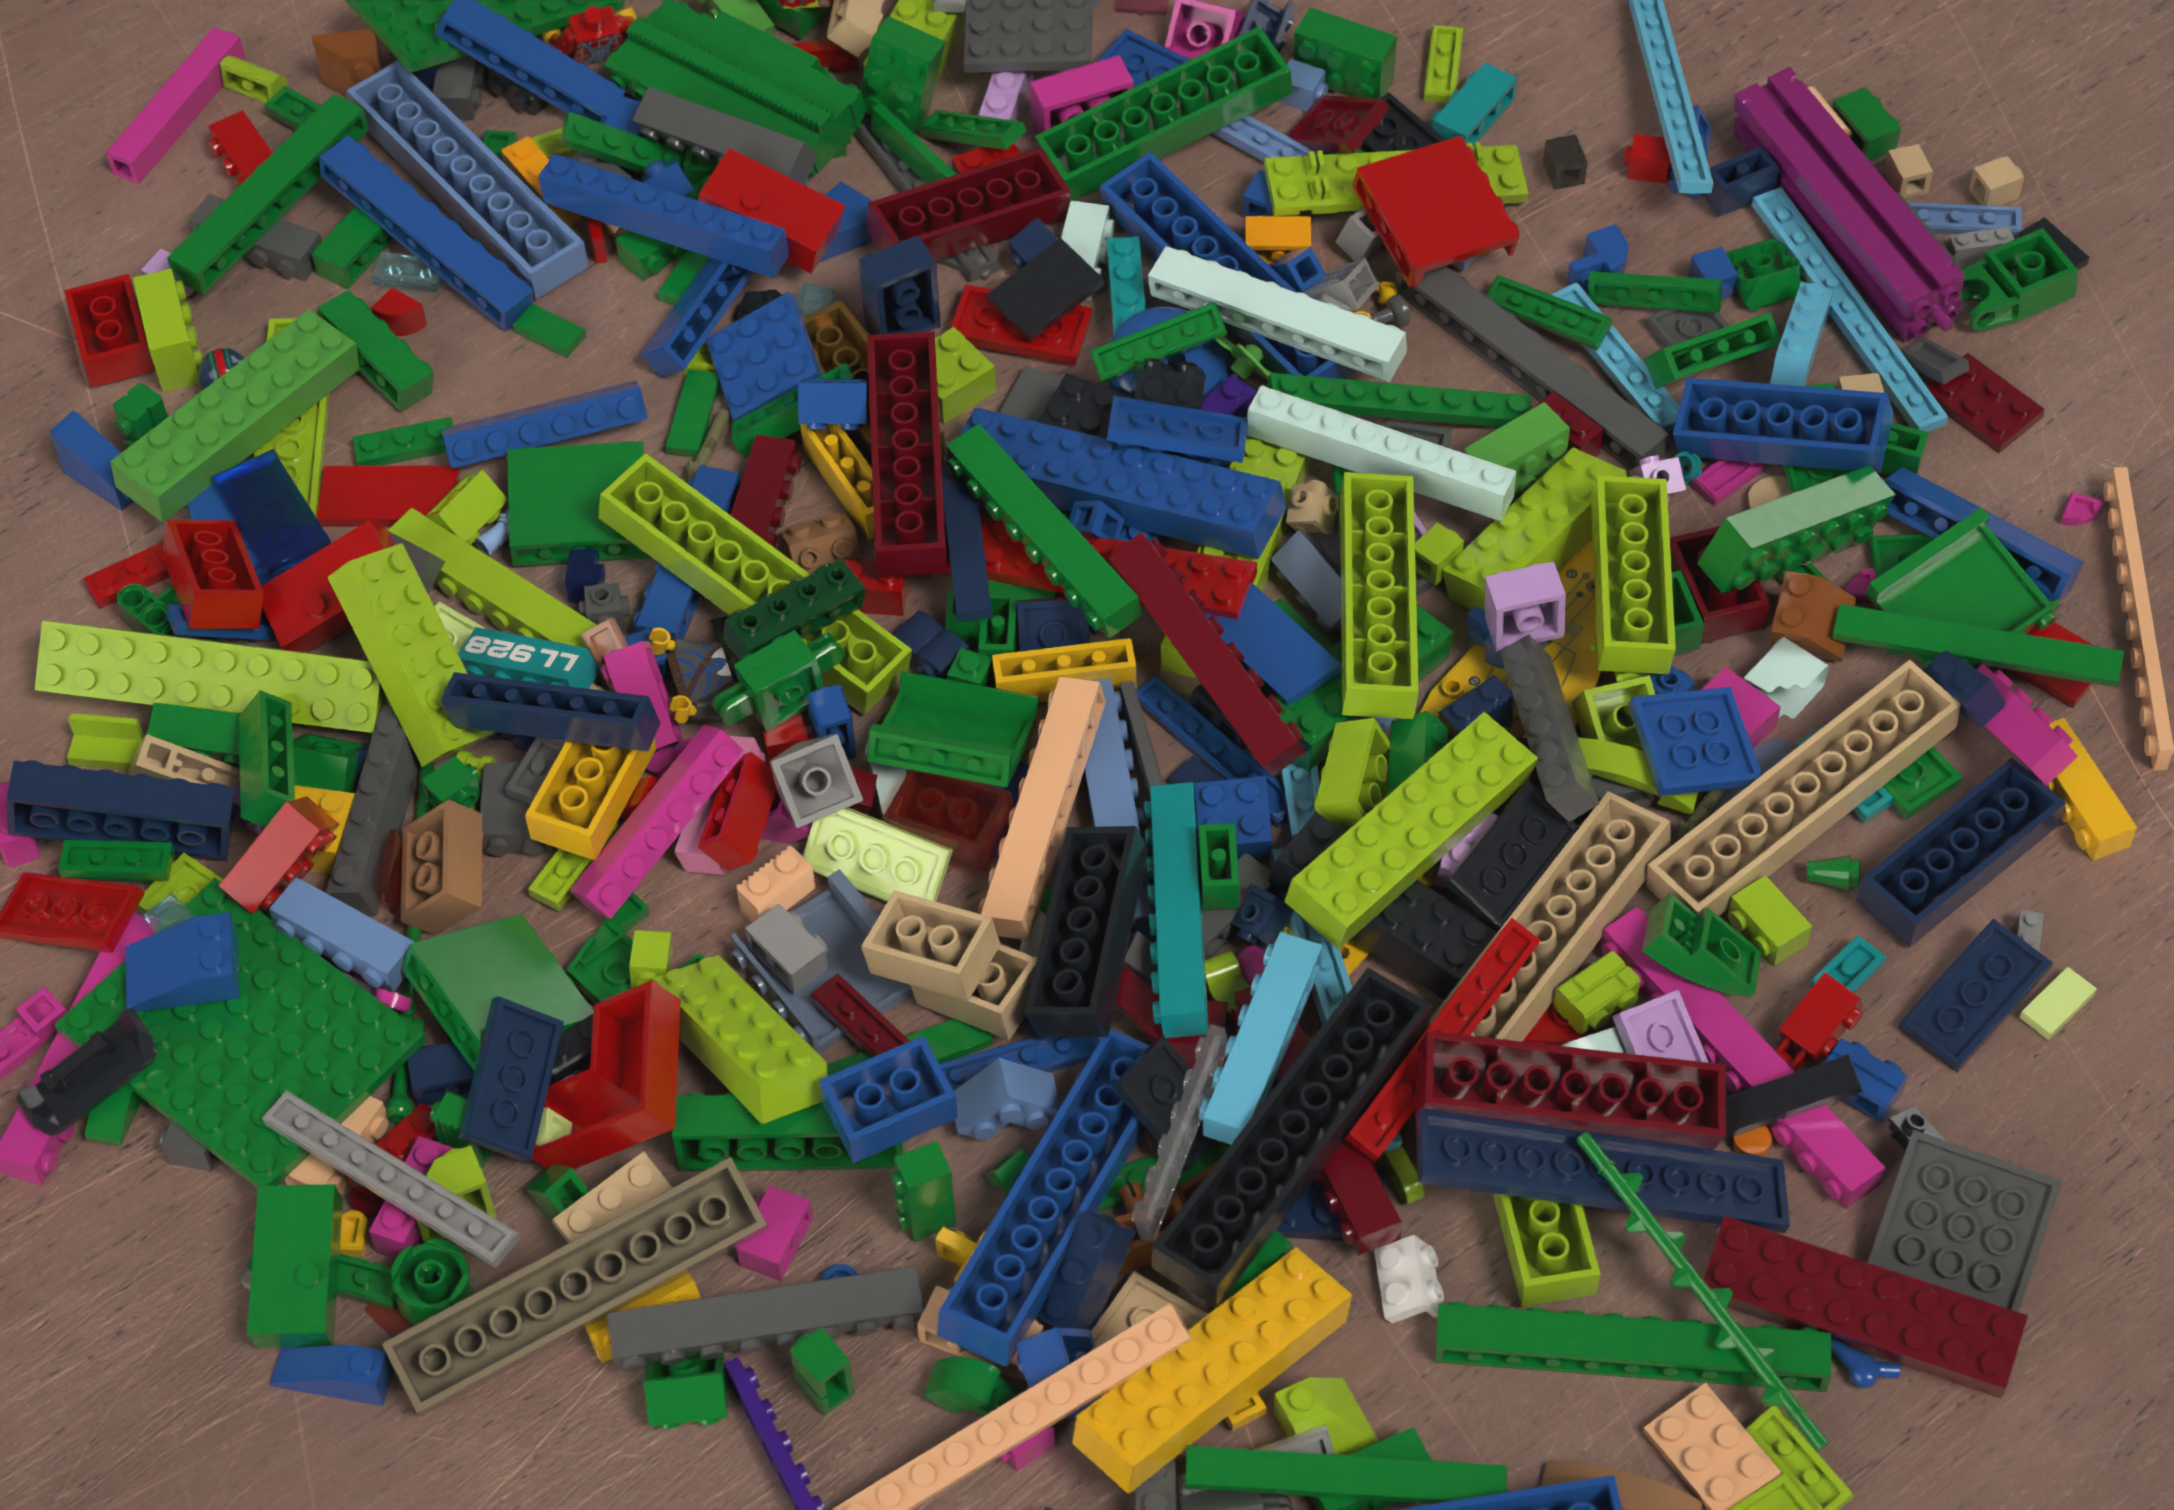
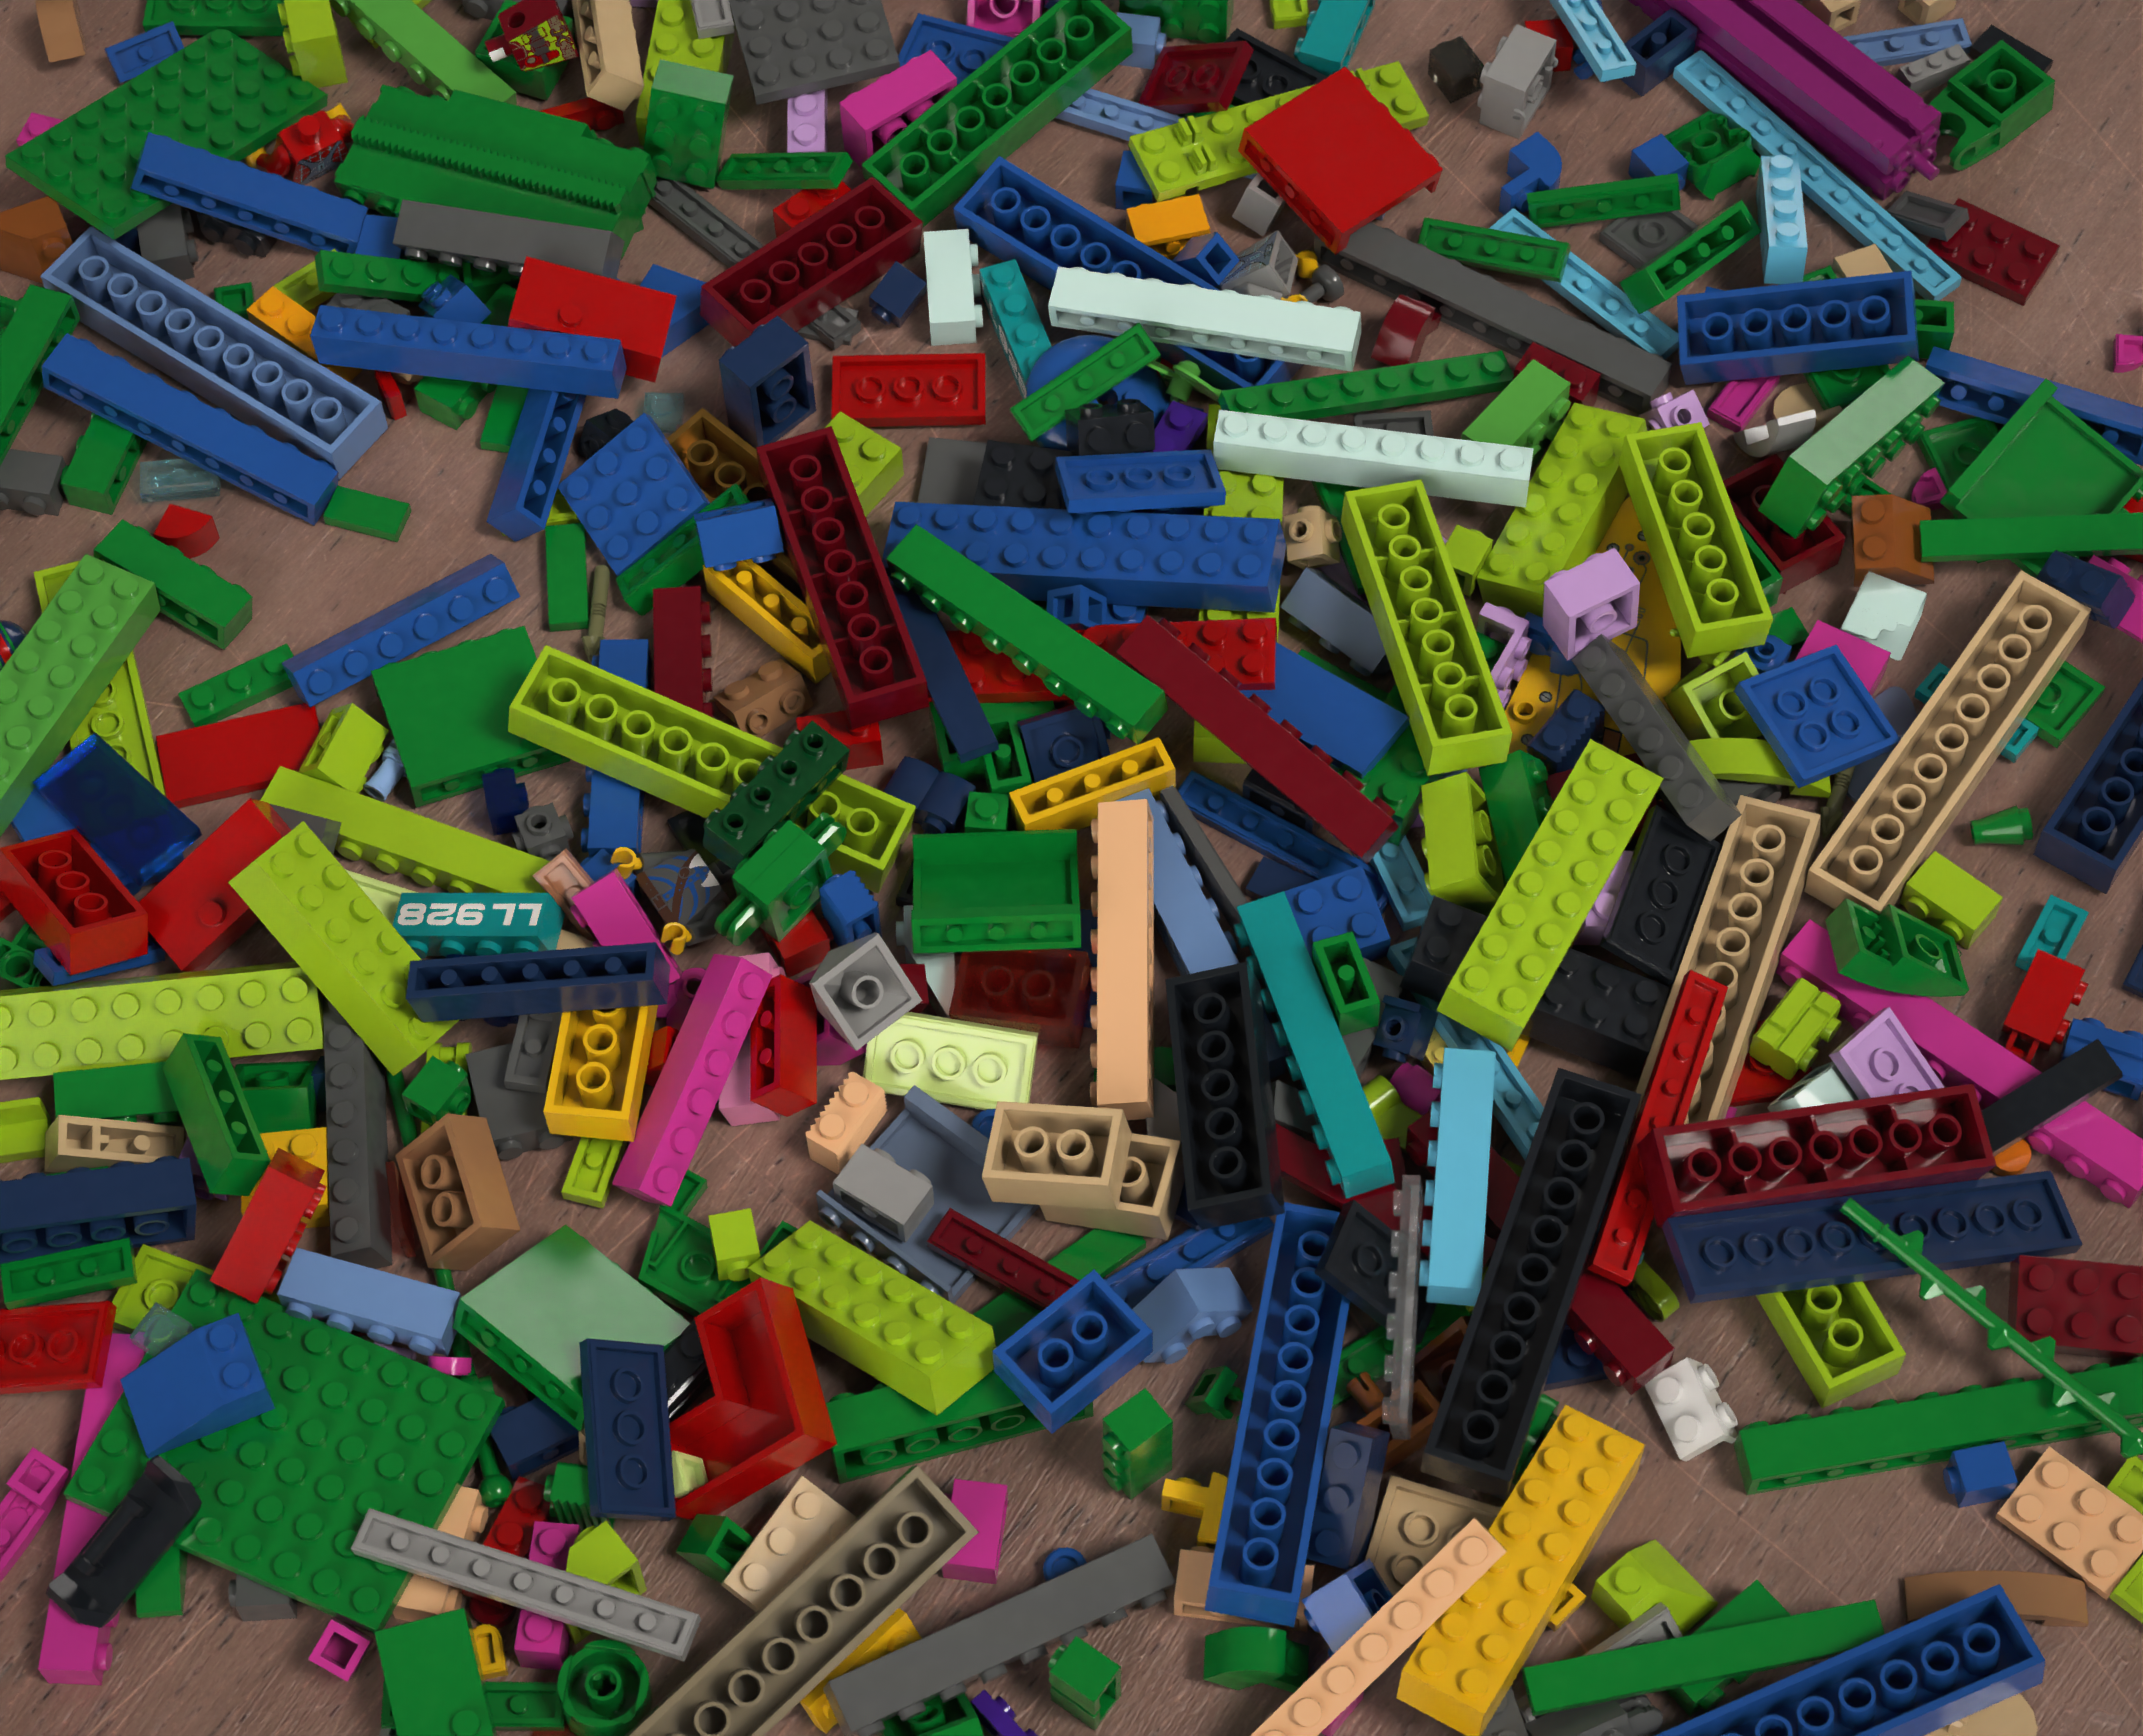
camera: 15 degrees left, 5 degrees up
(233, 1199) = (341, 1649): none -> dark pink brick
(908, 146) = (719, 207): green tile -> none
(1045, 290) = (929, 344): black tile -> none
(1448, 643) = (1512, 631): none -> lavender bracket
(1449, 361) = (1405, 331): none -> dark red brick
(1611, 180) = (1516, 80): none -> light grey brick
(1637, 1391) = (1980, 1474): none -> blue brick
(1694, 463) = (1703, 388): teal plate -> none
(1699, 668) = (1789, 628): none -> green tile
(1735, 501) = (1777, 435): none -> light grey slope

